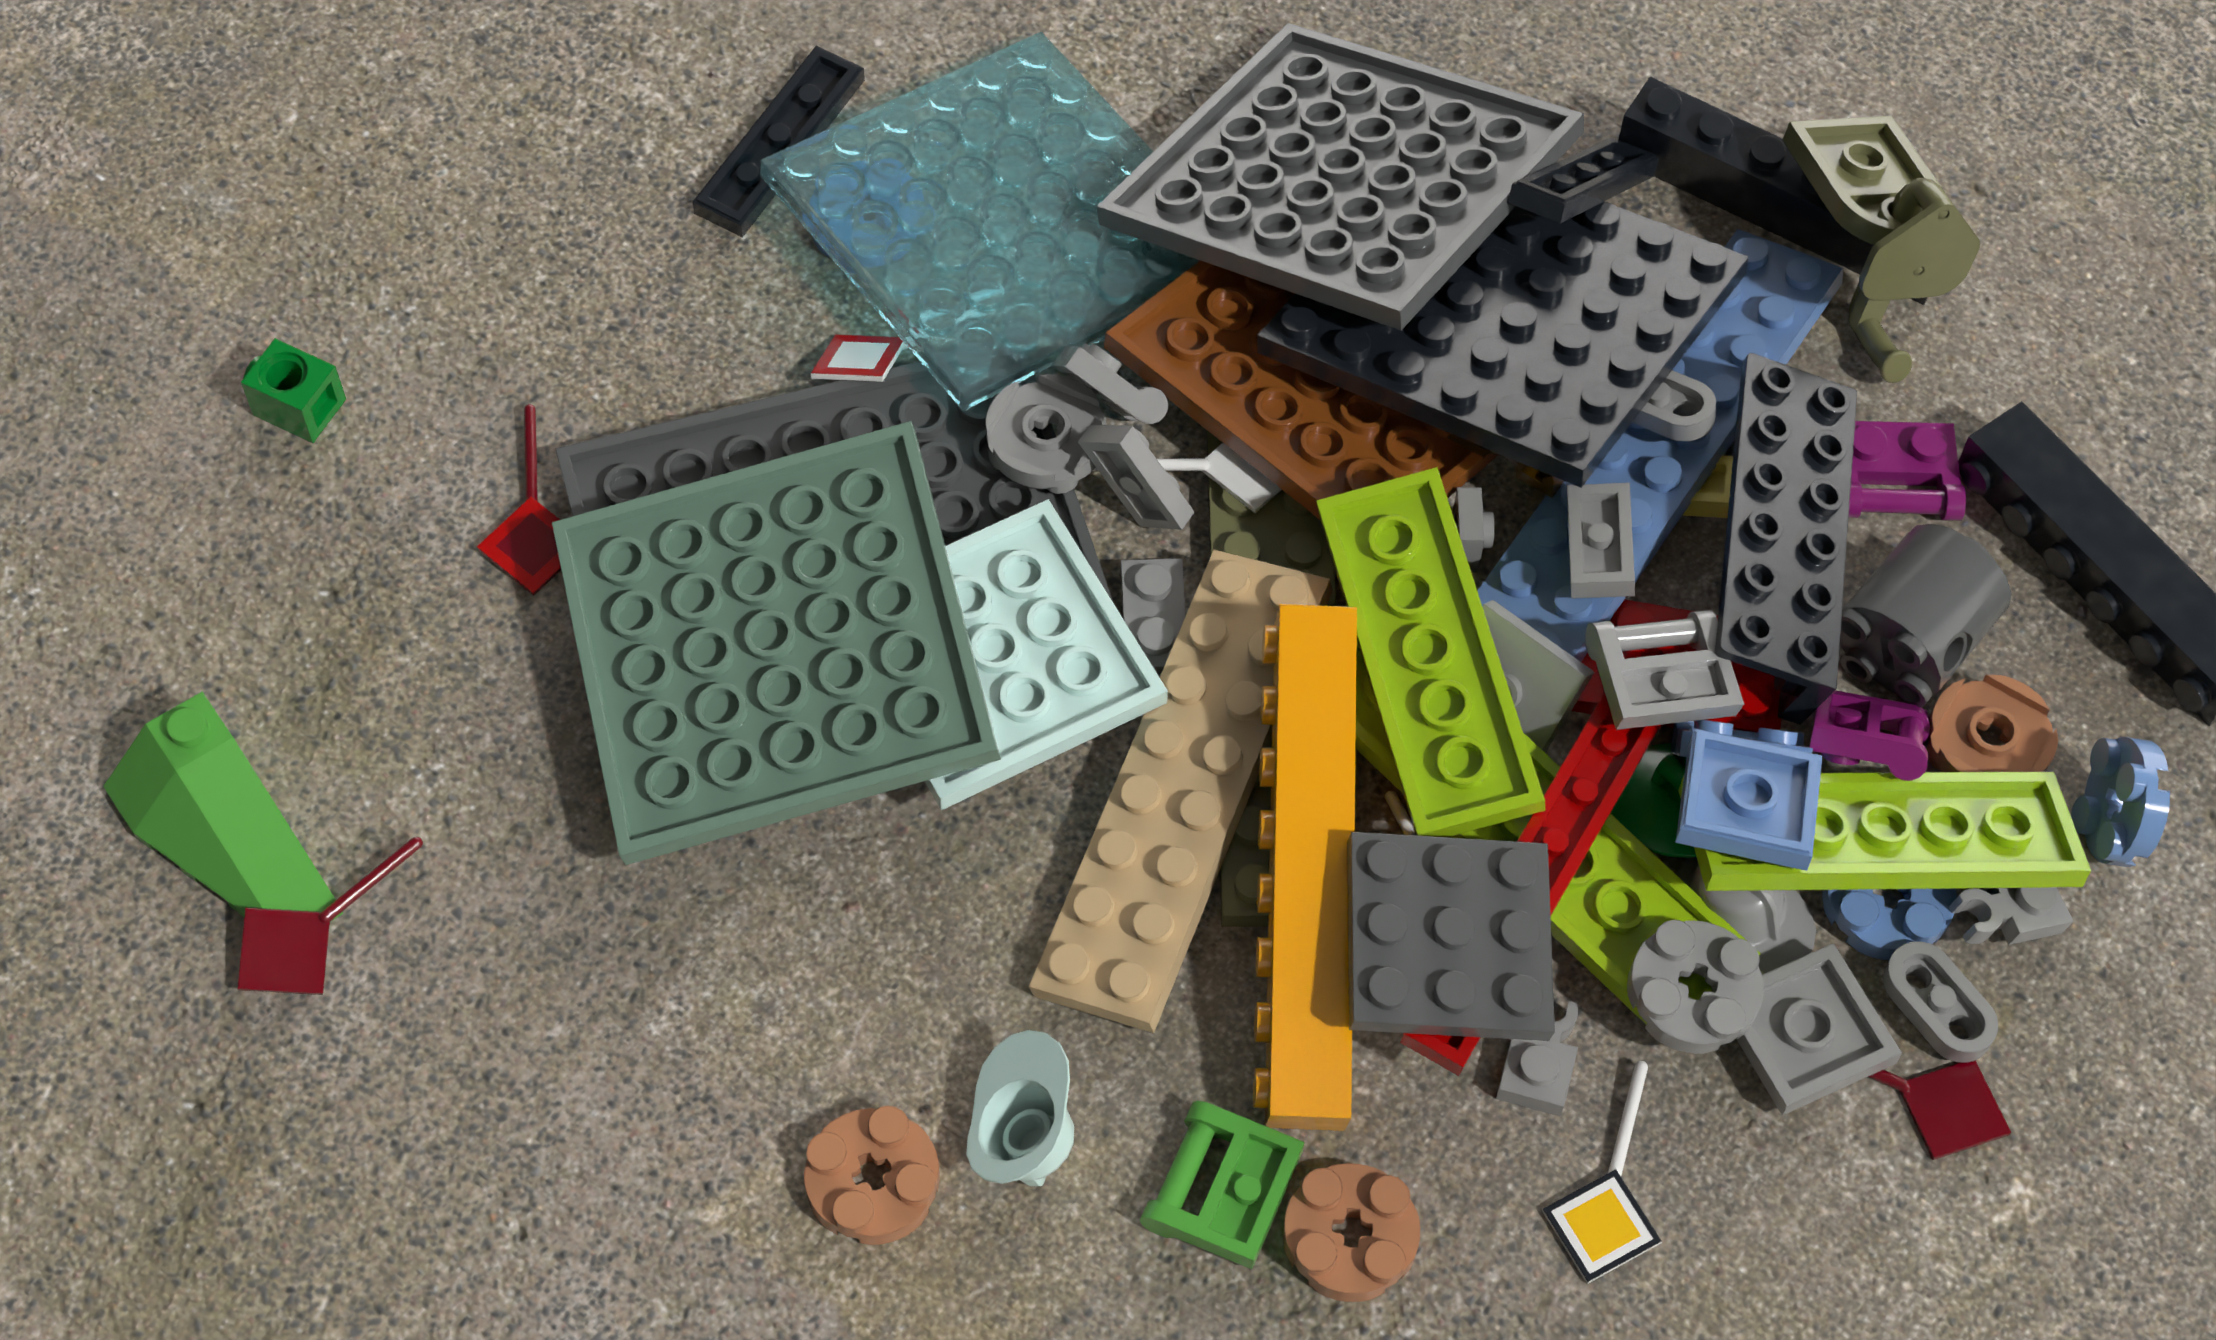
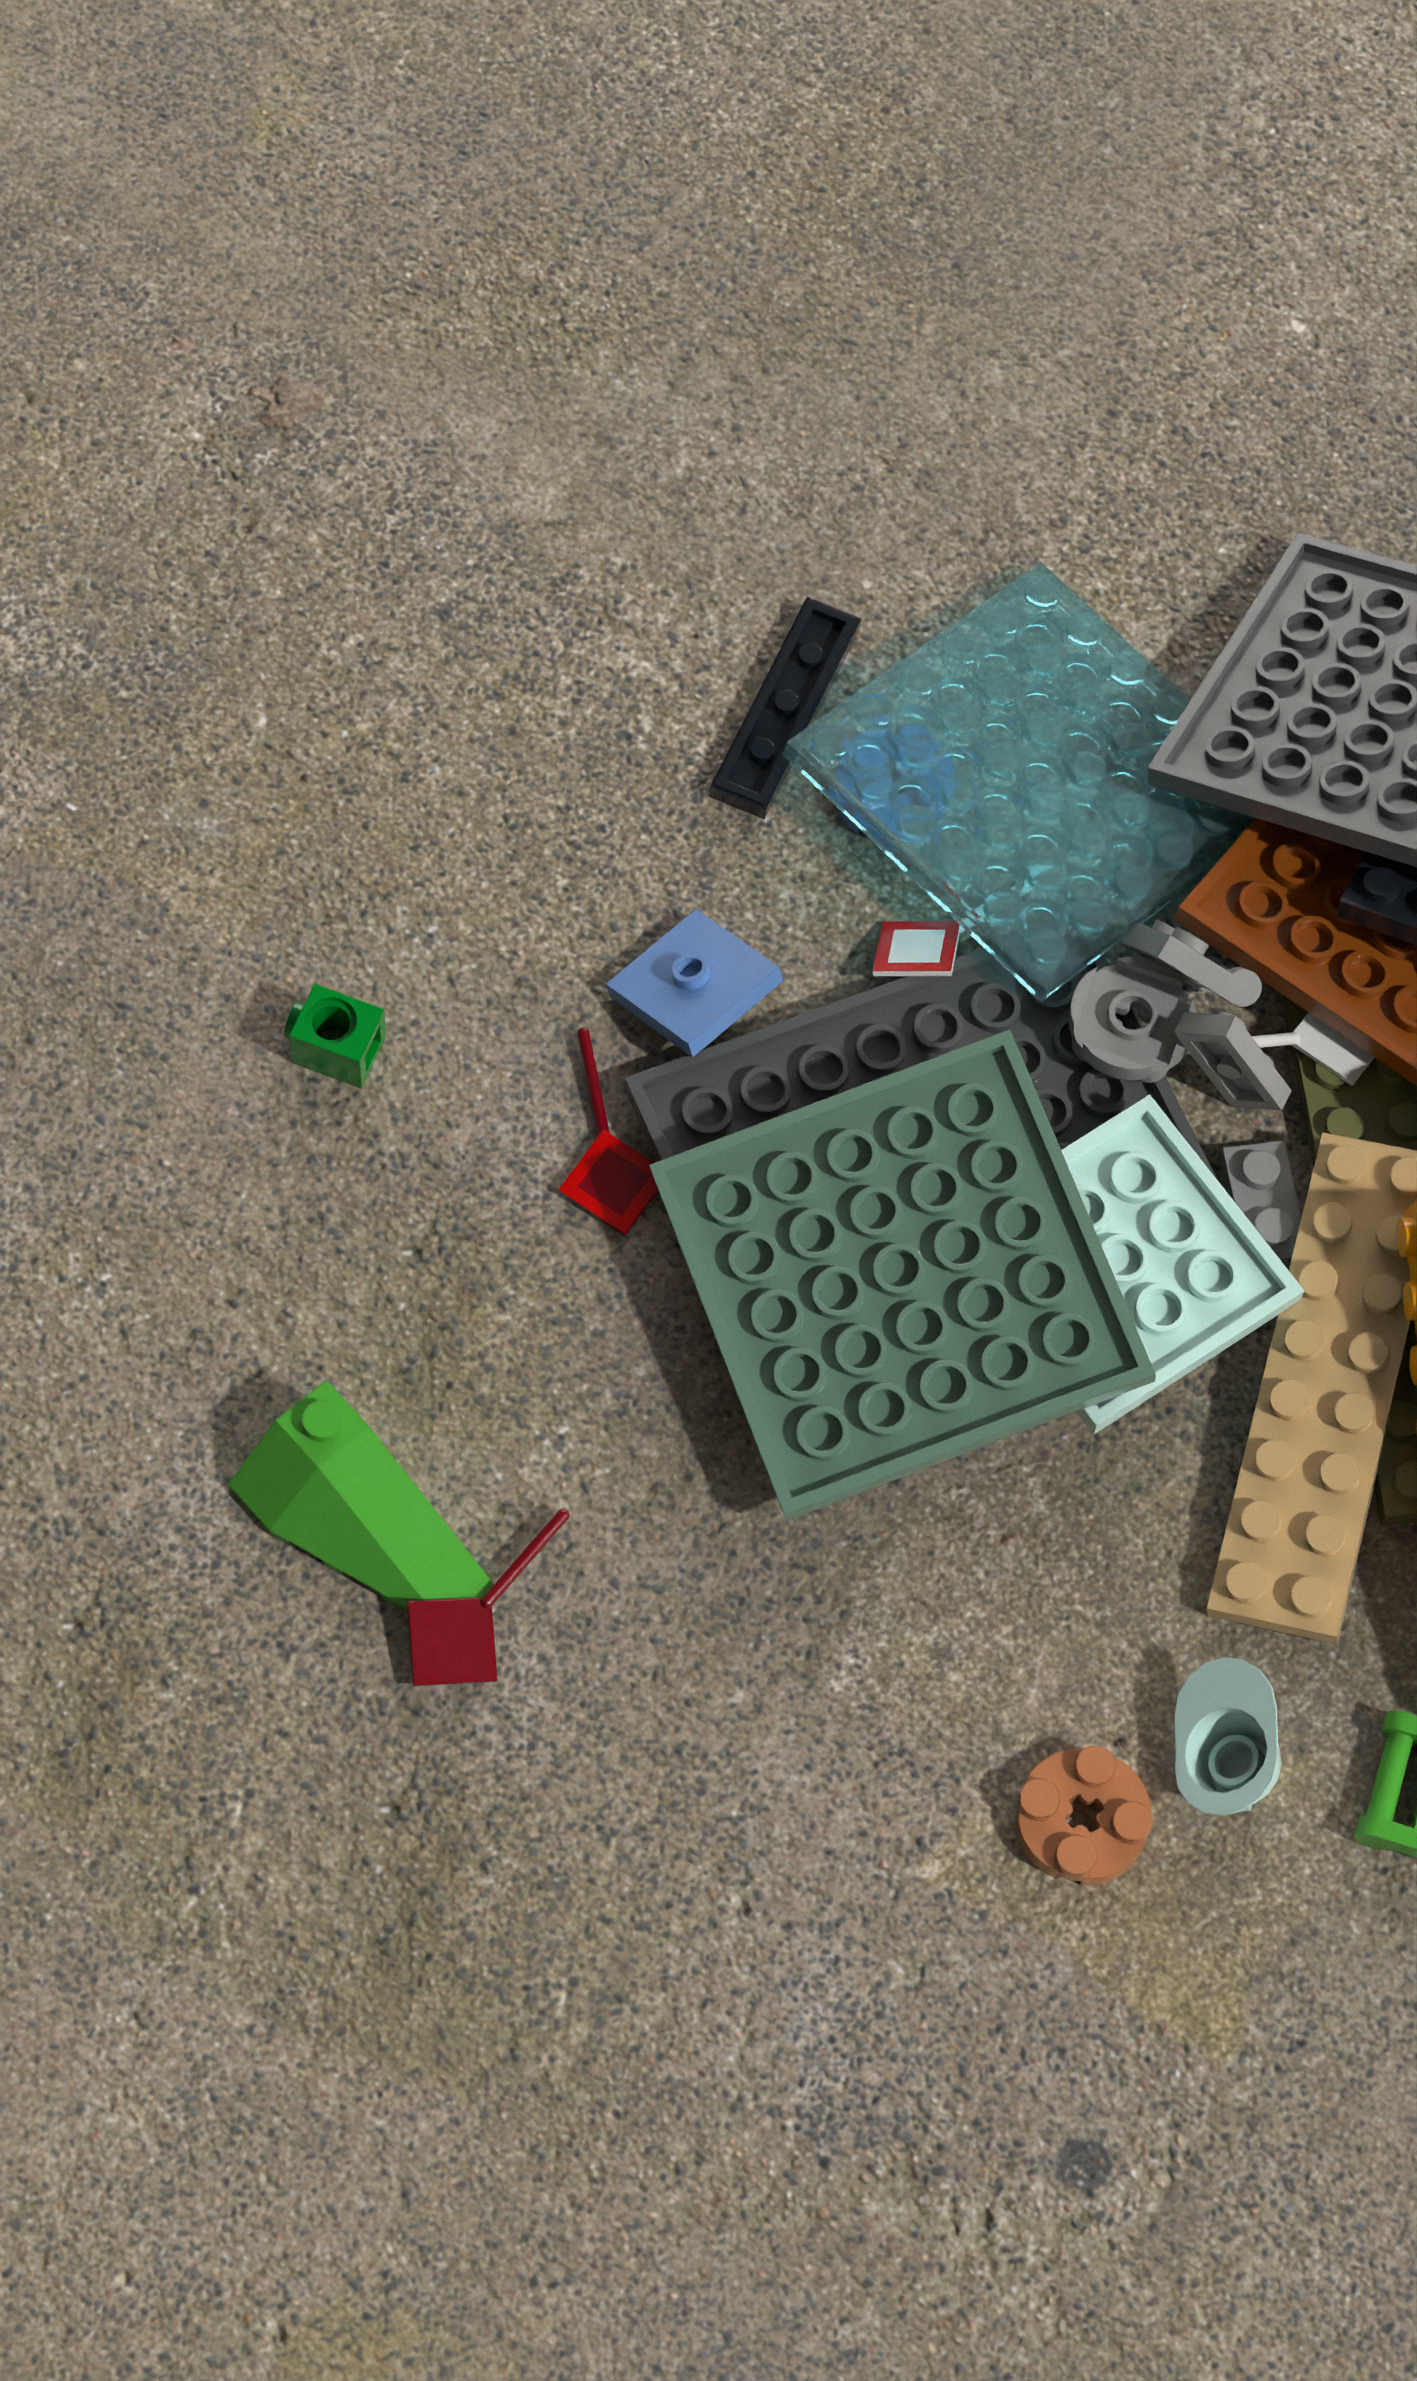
camera: 10 degrees left, 5 degrees up
(640, 370) = (694, 982): none -> medium blue plate

